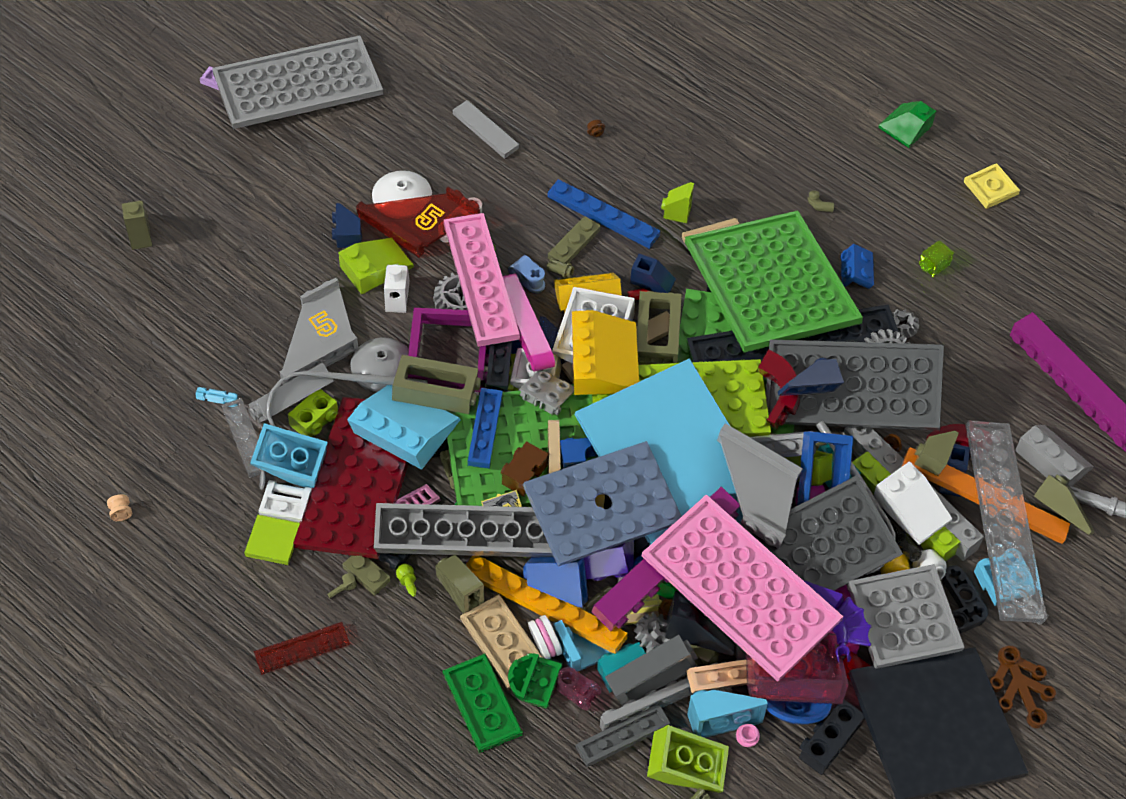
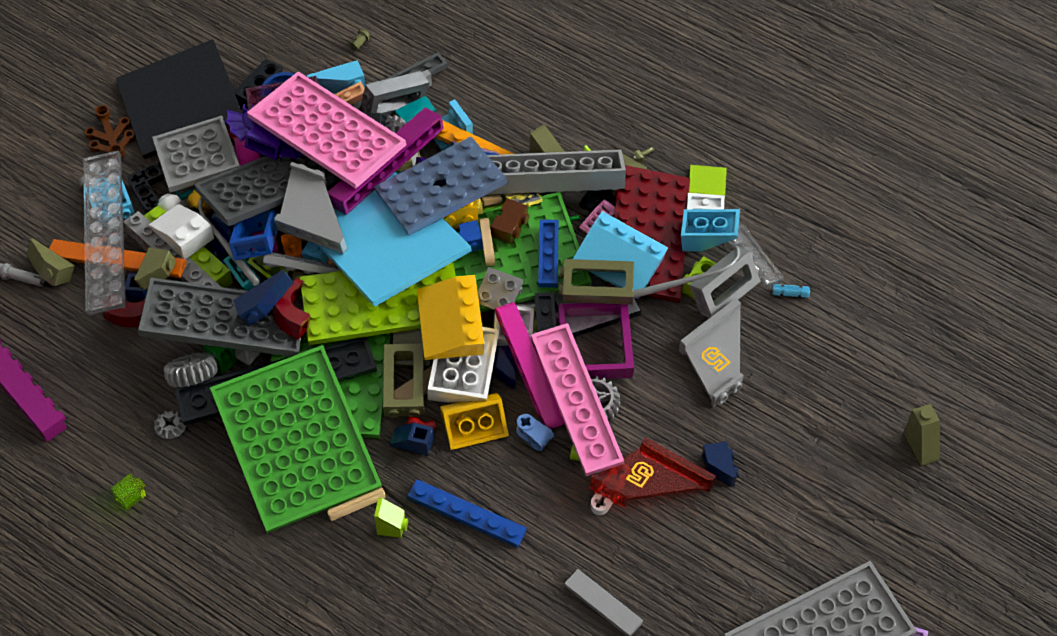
camera: 175 degrees right, 0 degrees up
(119, 507) = (837, 189): light nougat wheel -> none
(301, 648) = (662, 111): clear red tile -> none
(367, 262) = (685, 426): lime slope -> none
(367, 359) = (655, 345): light grey dish -> none
(396, 281) = (656, 394): white torso -> none
(400, 186) = (675, 525): white dish -> none
(482, 703) = (520, 89): green tile -> none
(498, 635) = (506, 126): tan tile -> none
(534, 679) = (483, 99): green slope -> none
(545, 637) = (481, 121): white head -> none
(558, 267) = (502, 444): olive pin -> none
(575, 240) = (492, 478): olive plate -> none
(582, 689) = (444, 97): clear pink piece -> none
(595, 128) = (484, 614): reddish brown plate -> none
(687, 760) = (373, 57): lime slope -> none
(818, 204) = (243, 547): olive arm -> none
(857, 266) = (209, 476): blue bracket -> none
(991, 186) = (56, 593): light yellow tile -> none
(1052, 455) = (47, 308): light grey slope -> none

